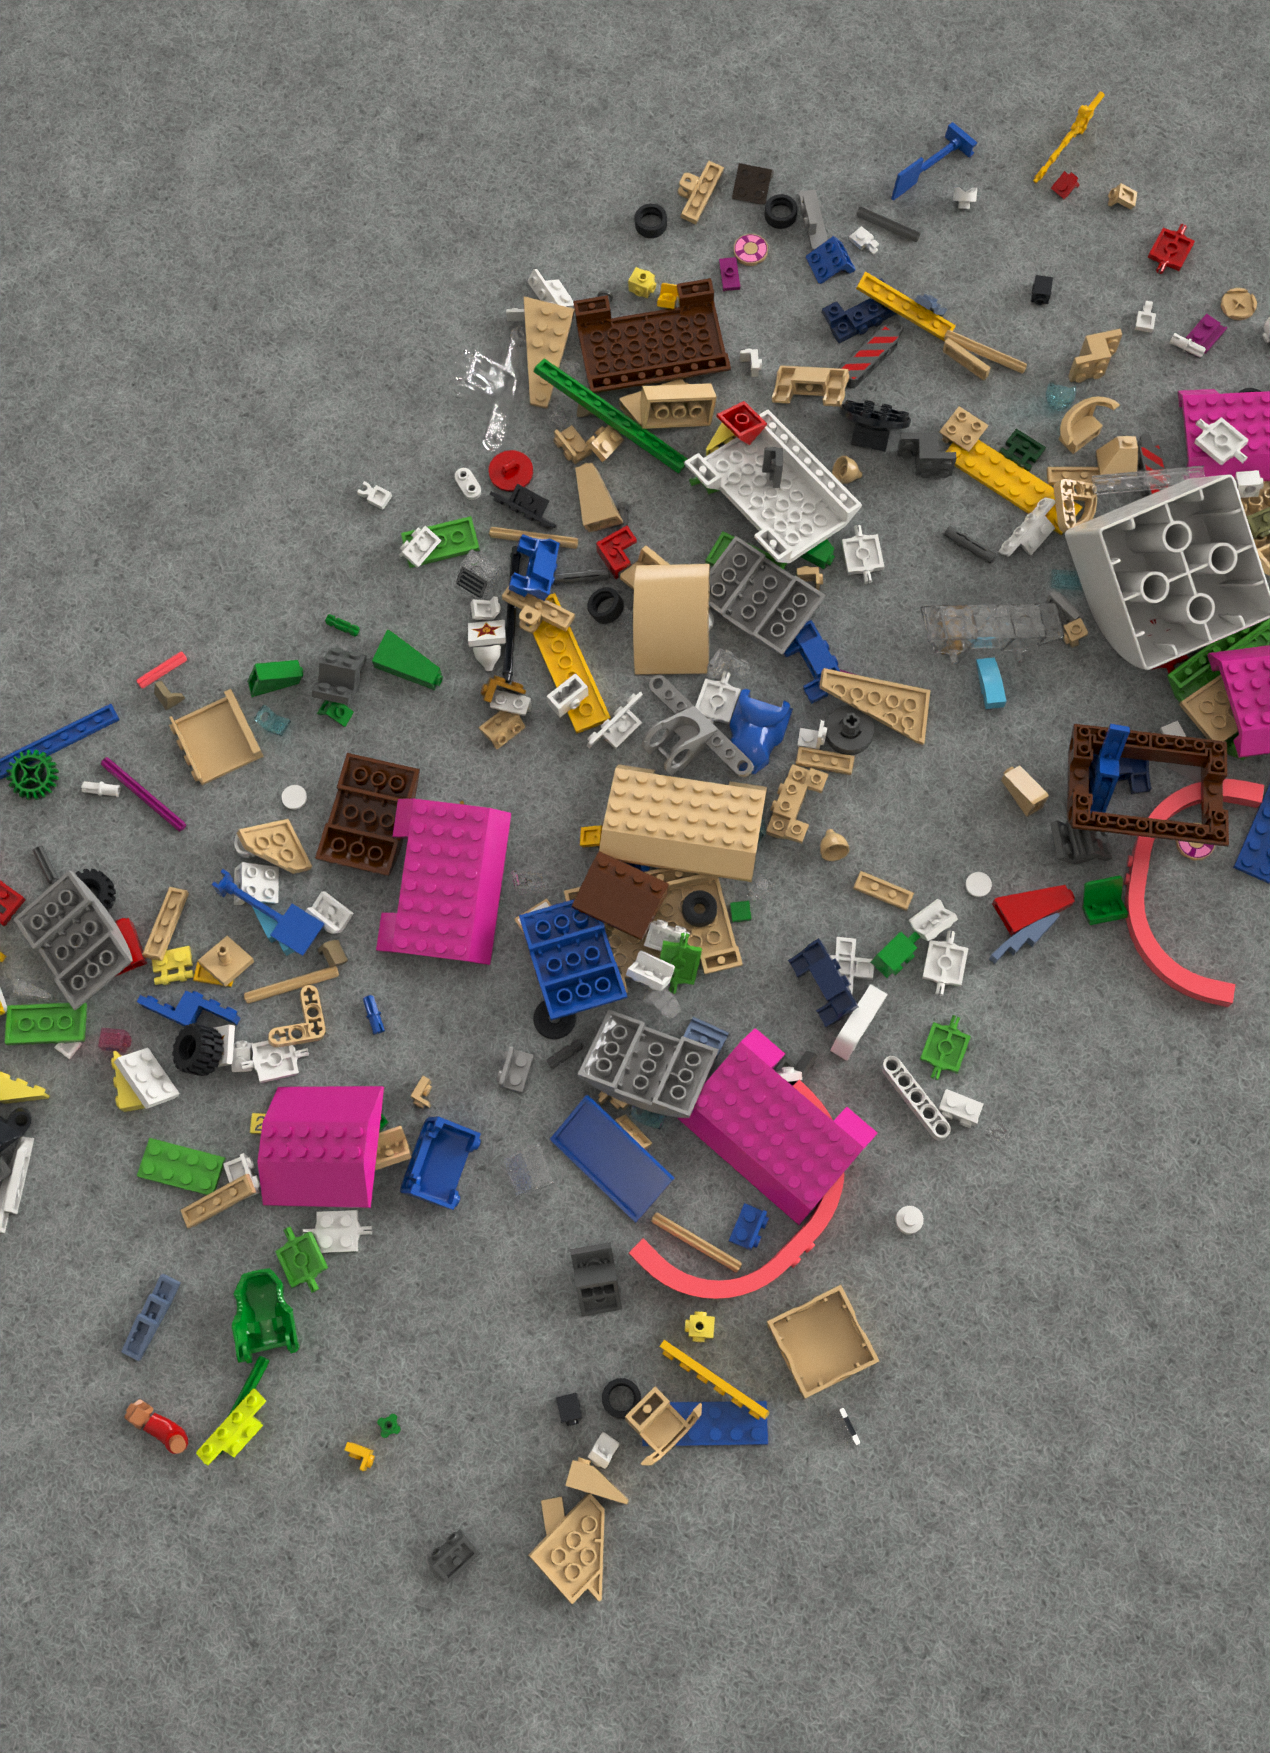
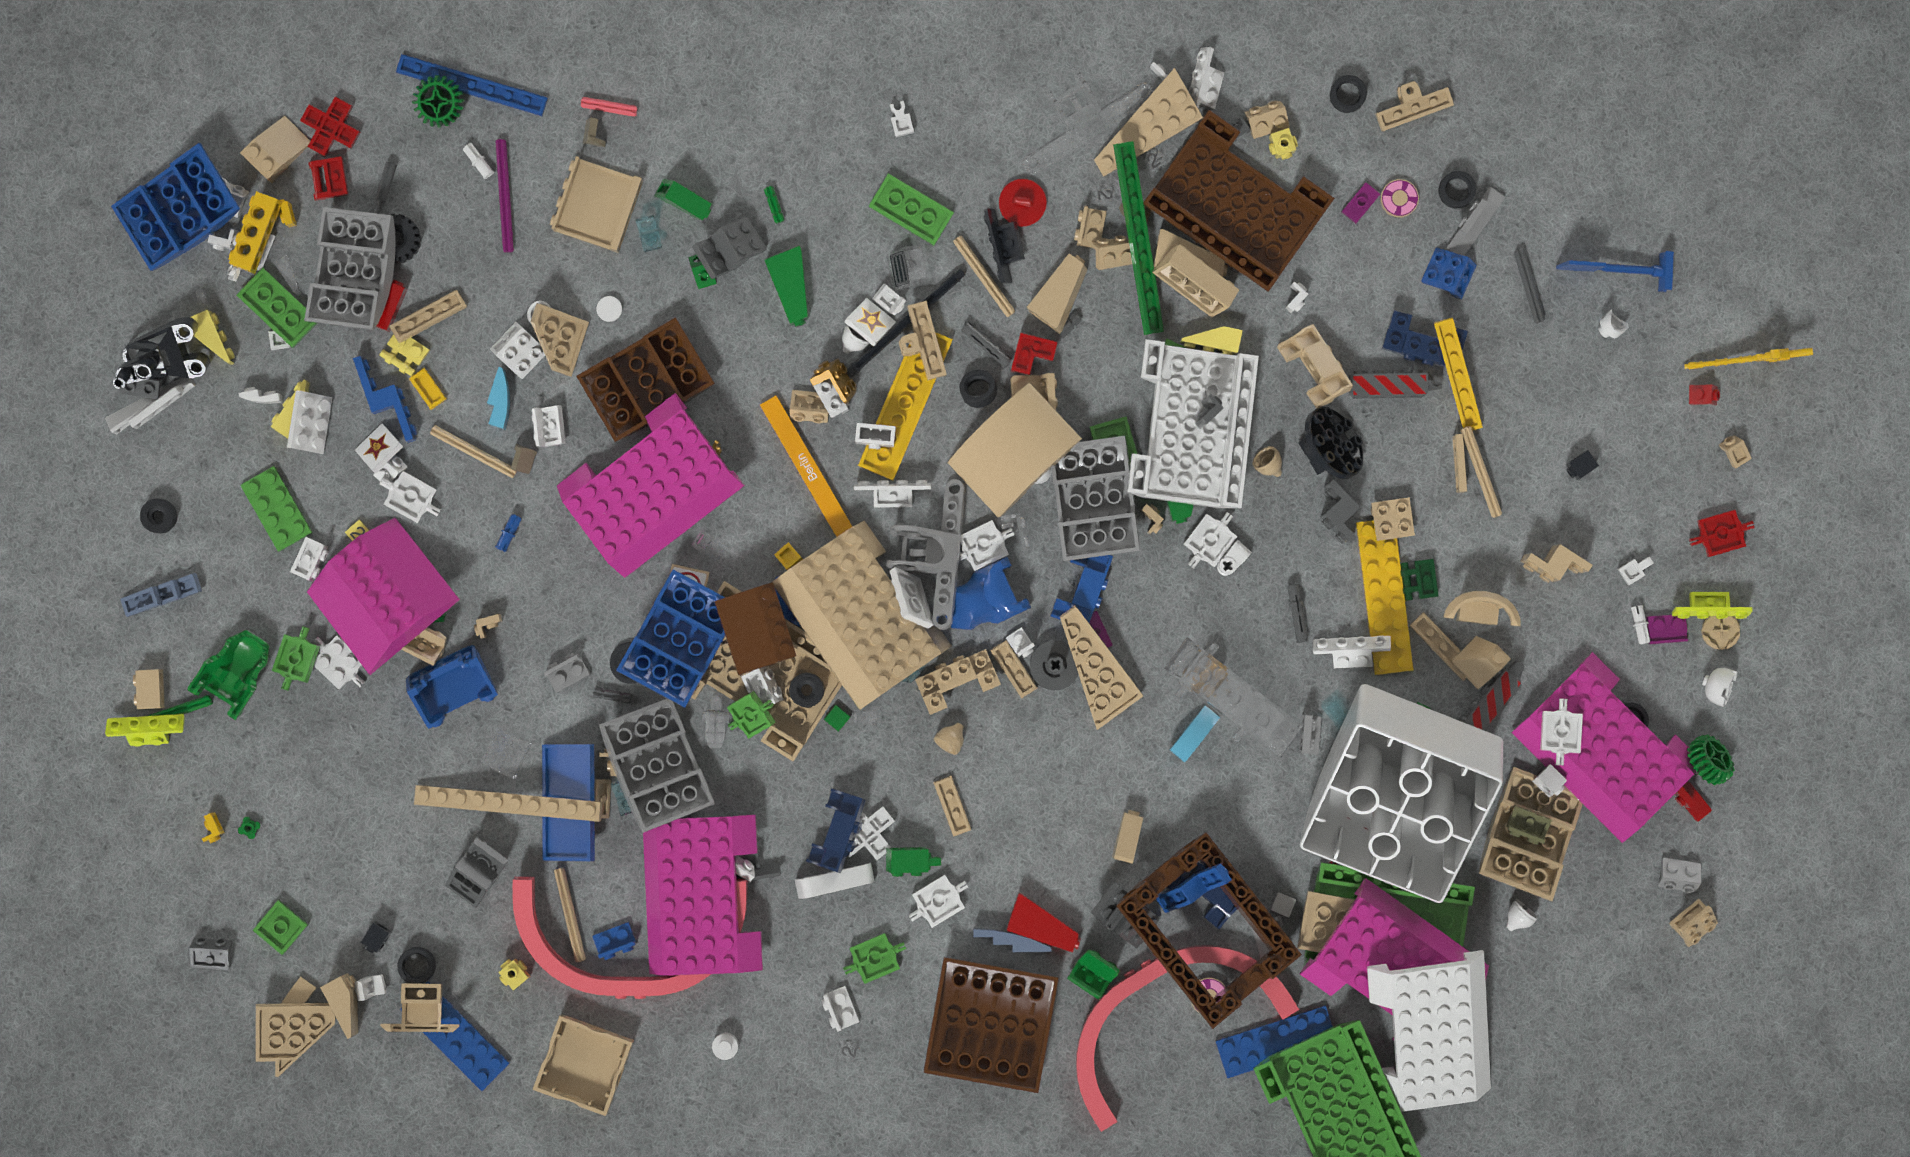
camera: 35 degrees right, 15 degrees up
(82, 1255) = (147, 515): none -> black tyre
(85, 1102) = (255, 395): none -> white slope
(114, 1040) = (313, 369): clear pink brick -> none
(160, 1427) = (99, 676): piece -> none
(197, 1049) = (361, 438): black tyre -> none
(208, 1397) = (149, 689): none -> tan brick
(218, 1201) = (277, 561): tan tile -> none
(226, 961) = (443, 388): tan tile -> none
(294, 928) = (512, 415): blue piece -> none
(306, 1028) = (452, 496): tan beam -> none
(420, 546) = (888, 200): white bracket -> none
(468, 482) = (980, 180): white plate -> none
(488, 1478) = (280, 927): none -> bright green plate
(540, 567) = (958, 311): blue bracket -> none
(540, 767) = (806, 466): none -> light orange tile
(567, 1202) = (508, 803): none -> tan plate
(616, 279) = (1267, 119): none -> tan bracket
(651, 971) = (722, 703): white bracket -> none
(668, 296) = (1290, 176): yellow bracket -> none
(702, 774) = (911, 597): none -> white plate
(706, 1034) = (719, 782): sand blue plate -> none
(706, 1375) = (487, 1026): yellow plate -> none
(742, 422) = (1225, 348): red slope -> none
(752, 183) = (1462, 141): dark brown bracket -> none
(841, 1430) = (538, 1131): clear slope -> none
(864, 239) = (1495, 278): white plate -> none
(890, 549) = (1235, 556): none -> white piece
(914, 1088) = (813, 980): white beam -> none
(930, 303) = (1480, 391): sand blue plate -> none
(932, 920) = (961, 863): white bracket -> none
(978, 884) = (1022, 870): white piece -> none
(1059, 396) = (1491, 569): clear light blue hair -> none
(1067, 518) = (1403, 654): tan beam -> none
(1074, 631) = (1294, 761): tan bracket -> none
(1075, 1007) = (990, 1025): none -> reddish brown slope
(1143, 479) = (1479, 702): clear tile -> none
(1216, 292) = (1711, 604): none -> neon yellow bracket

